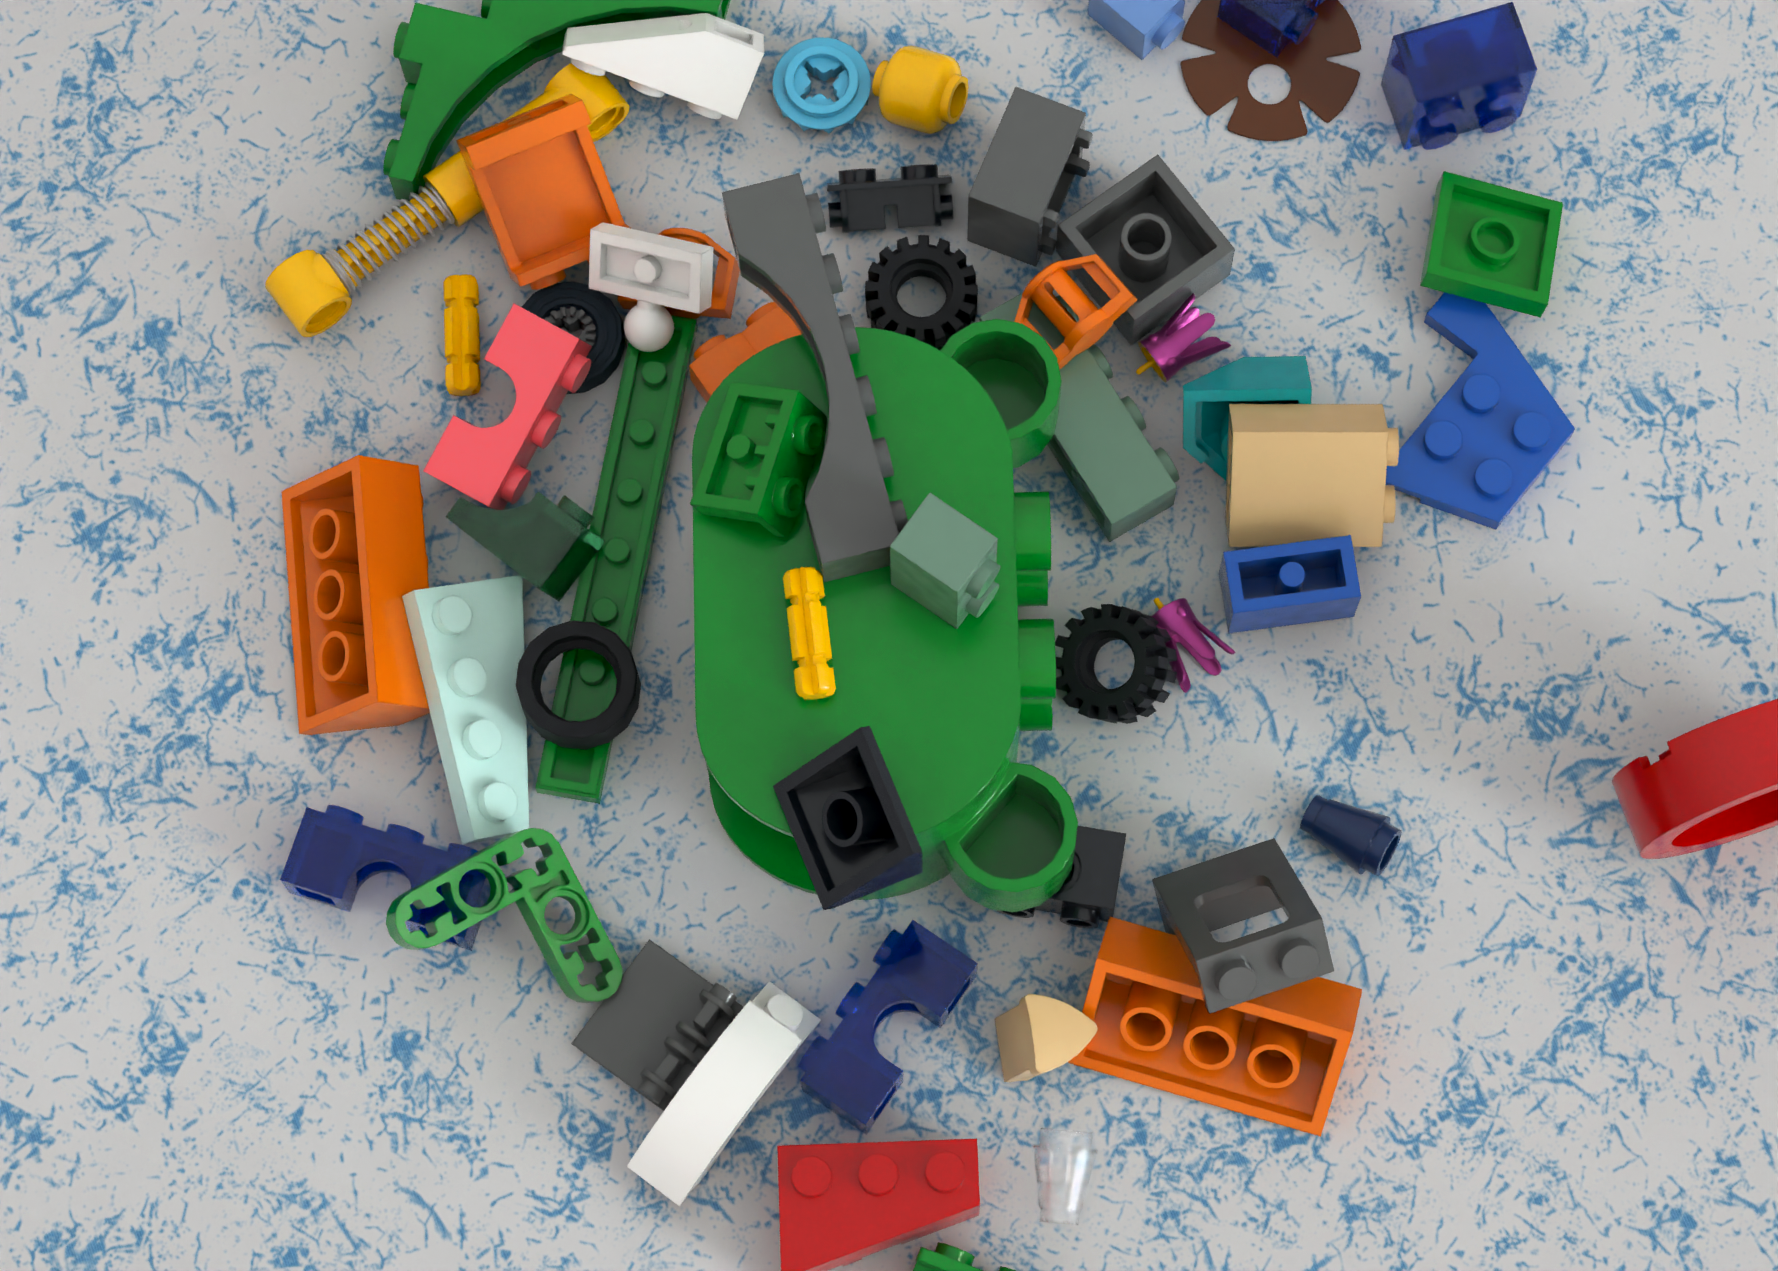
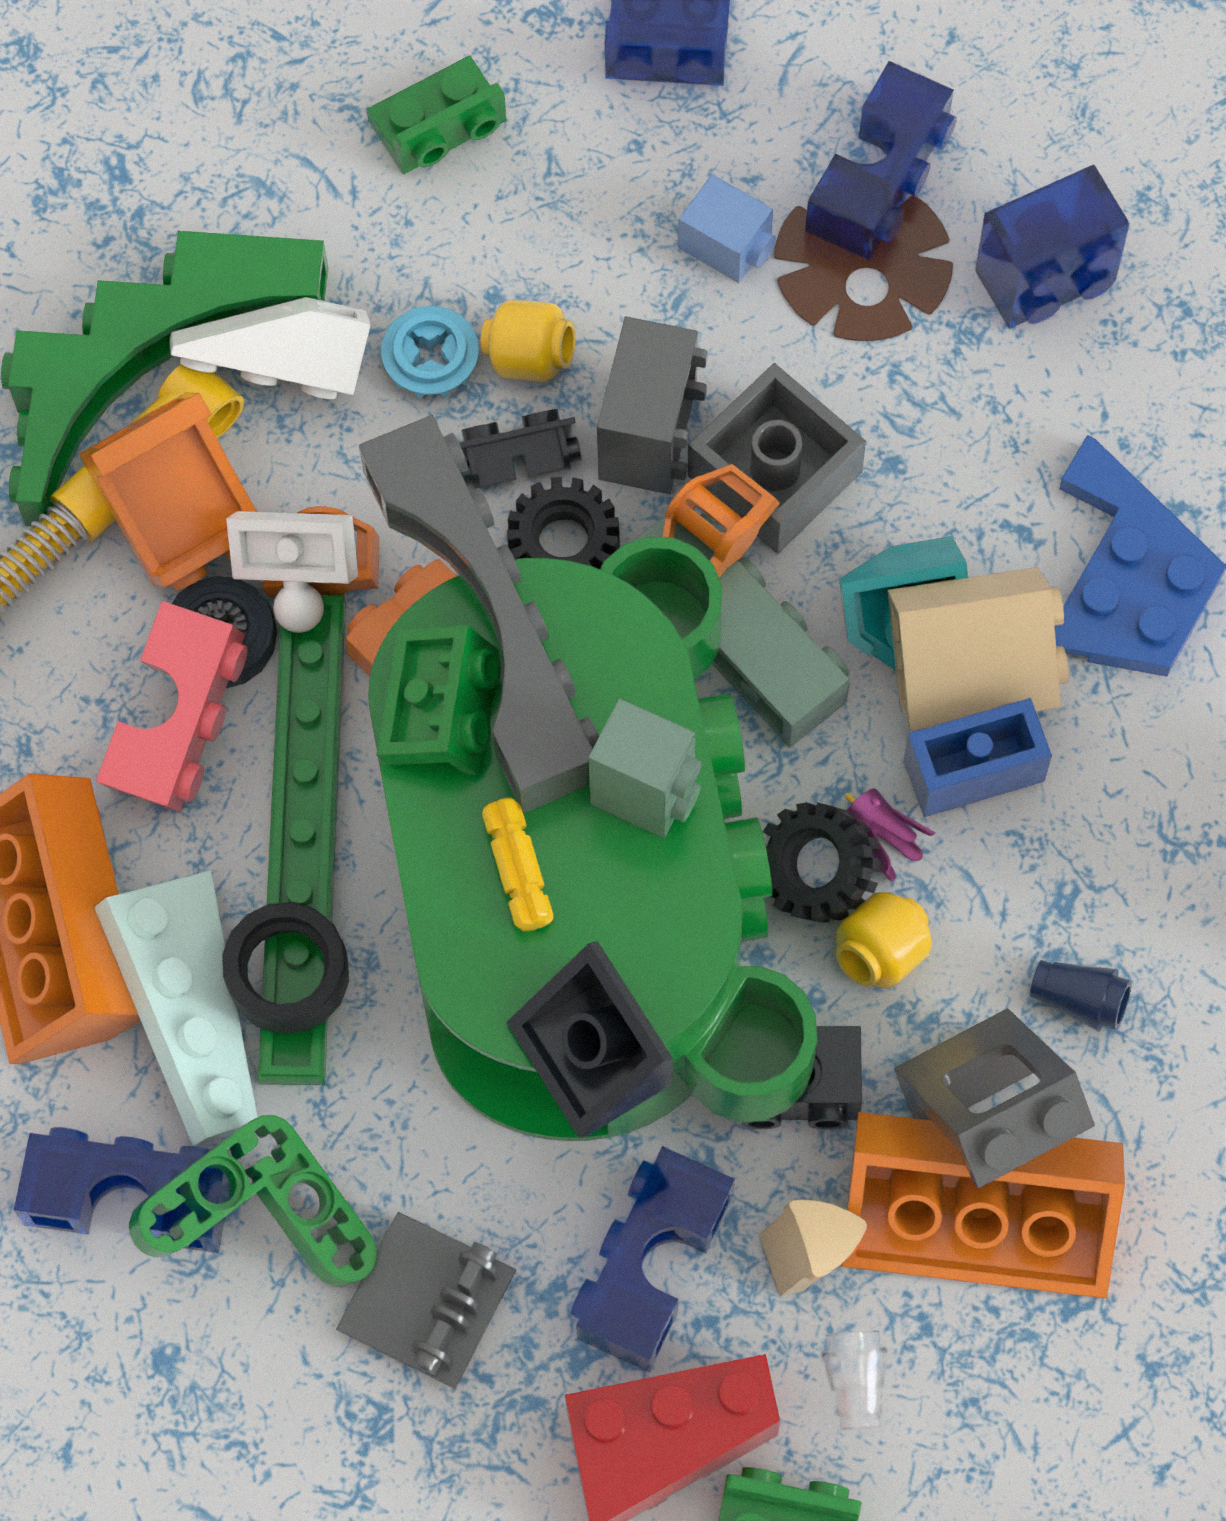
camera: 10 degrees left, 5 degrees down
(461, 335) = (112, 646): yellow axle -> none
(538, 540) = (221, 831): clear green arch -> none
(722, 1092) = (498, 1353): white arch -> none
(1165, 751) = (883, 940): none -> yellow head
(1171, 345) = (816, 549): flat silver piece -> none
(1492, 244) = (1113, 402): green plate -> none

